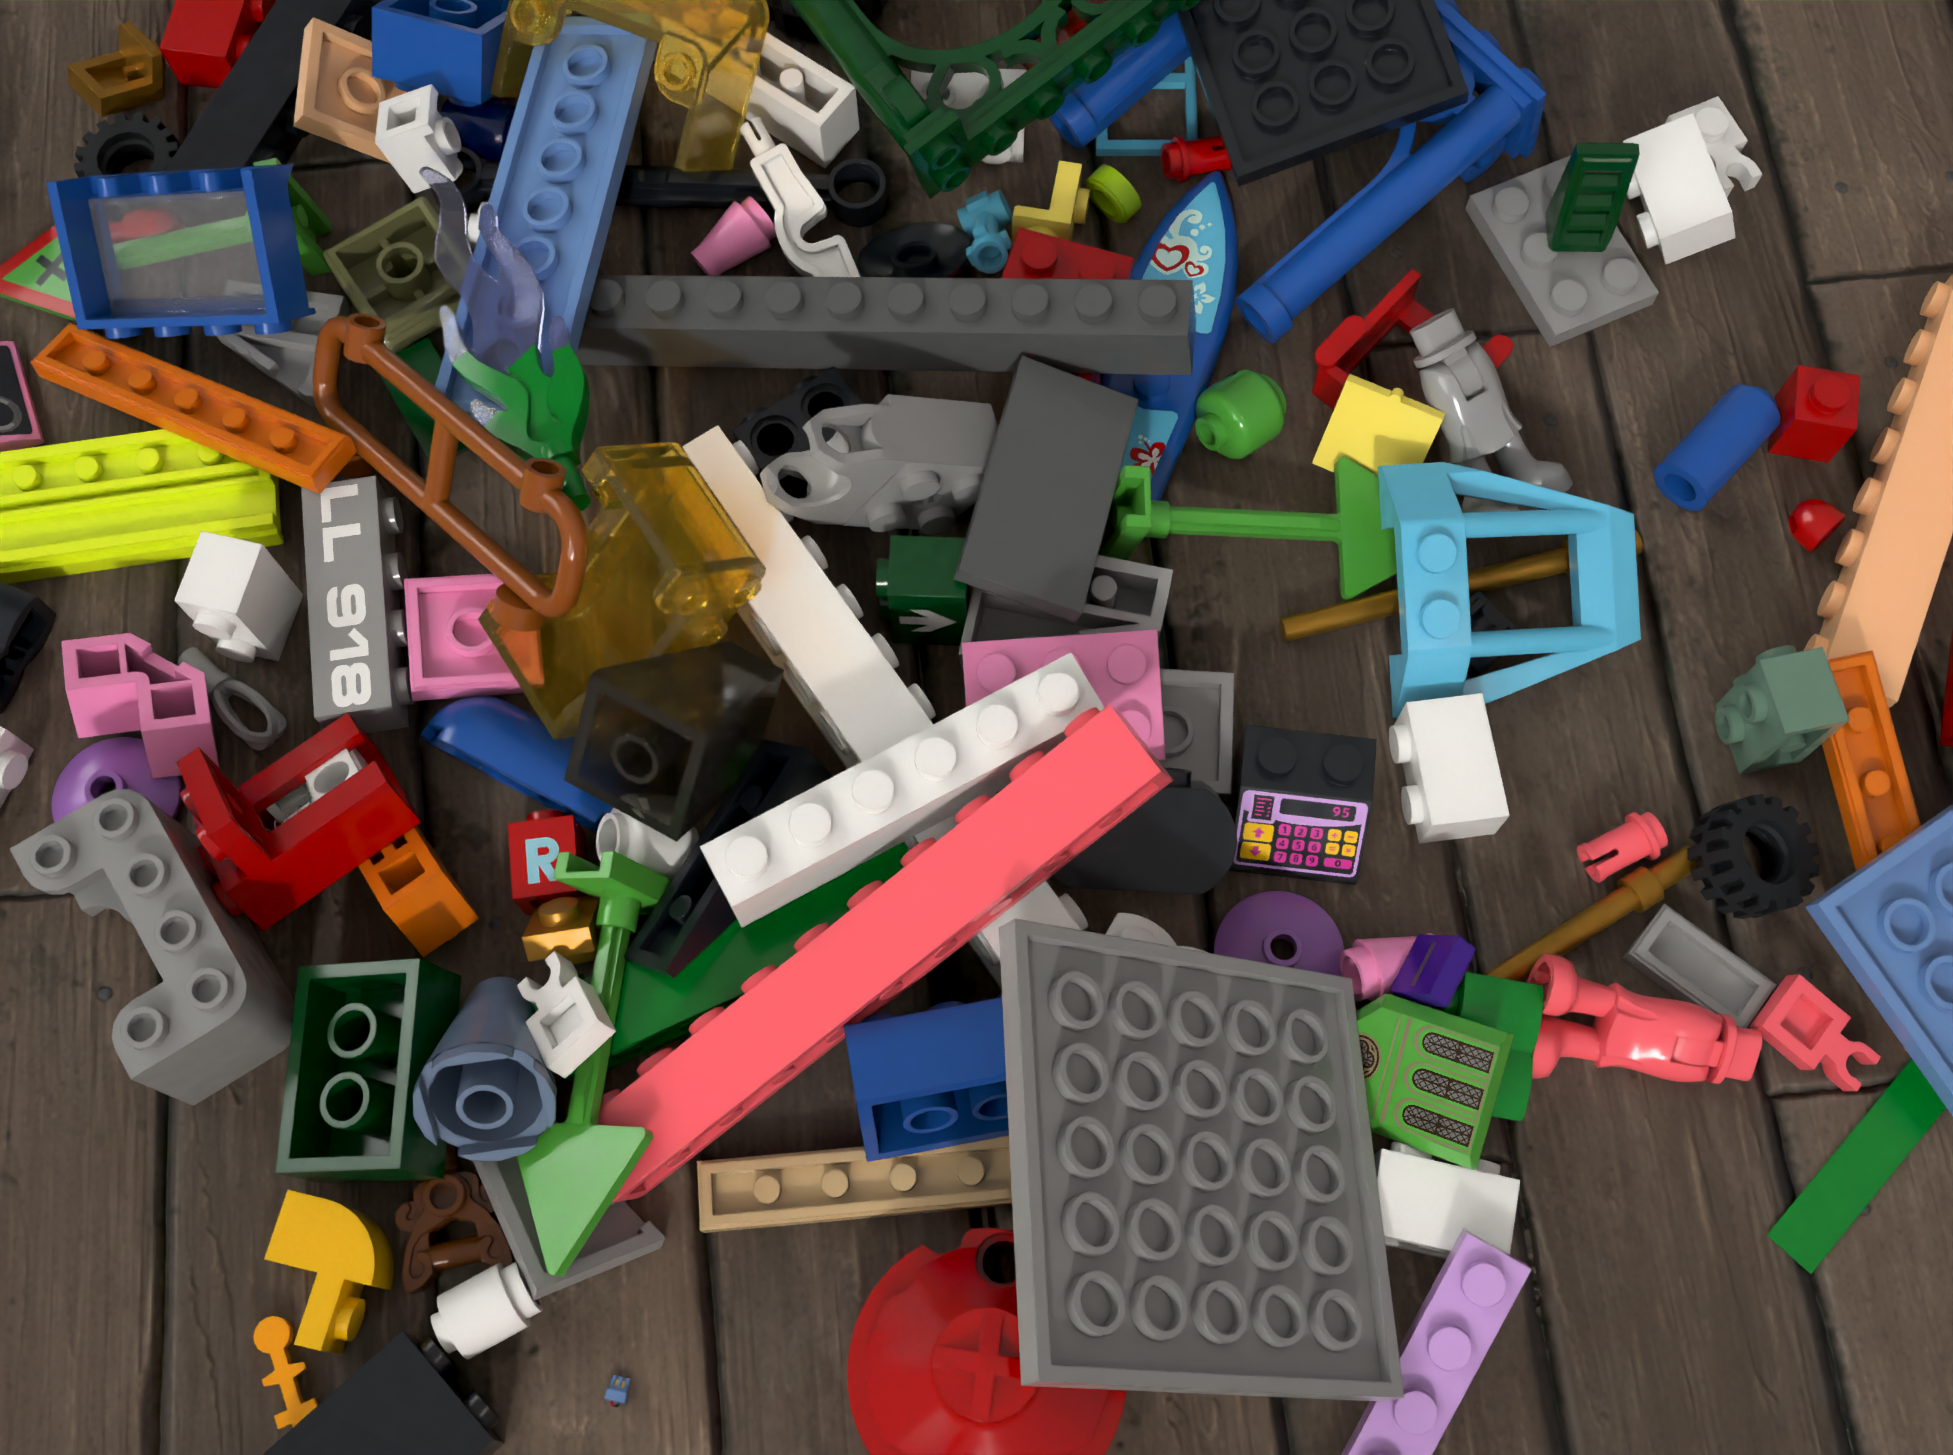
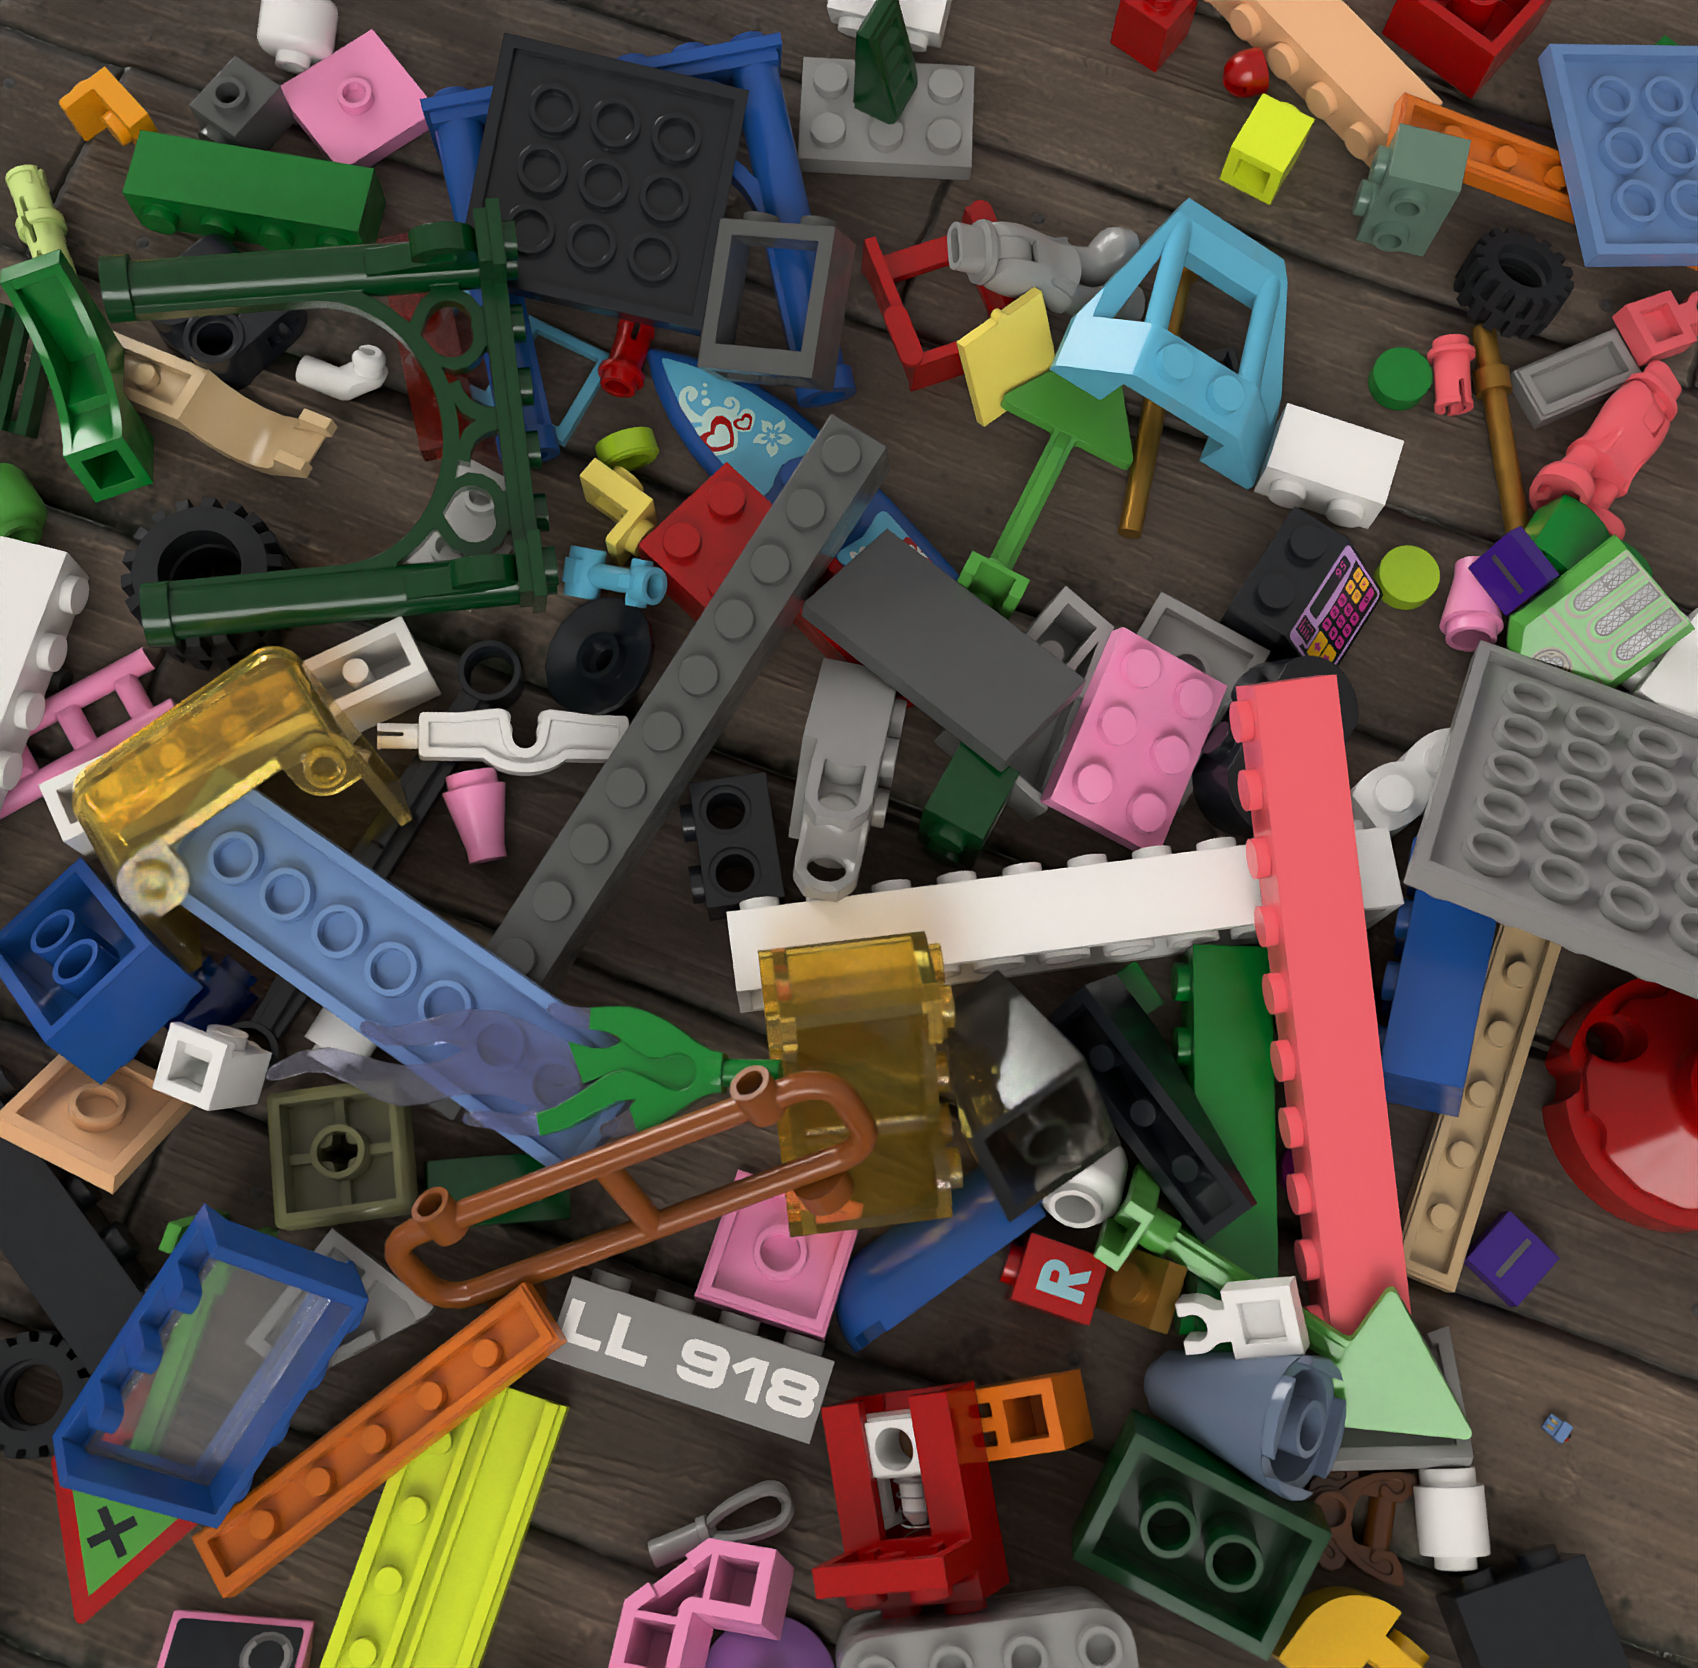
camera: 70 degrees left, 5 degrees up
(239, 597) = (641, 1472): white brick -> none
(758, 1273) = (1510, 1258): none -> dark purple tile
(895, 792) = (1203, 911): white brick -> none
(1241, 413) = (917, 457): bright green head -> none
(1286, 916) = (1387, 691): medium lavender dish -> none
(1316, 251) = (817, 361): none -> dark grey window
(1386, 895) = (1407, 577): none -> lime tile
(1589, 802) = (1399, 378): none -> green tile
(1717, 446) = (1143, 104): blue brick -> none
(1747, 573) = (1266, 148): none -> neon yellow brick

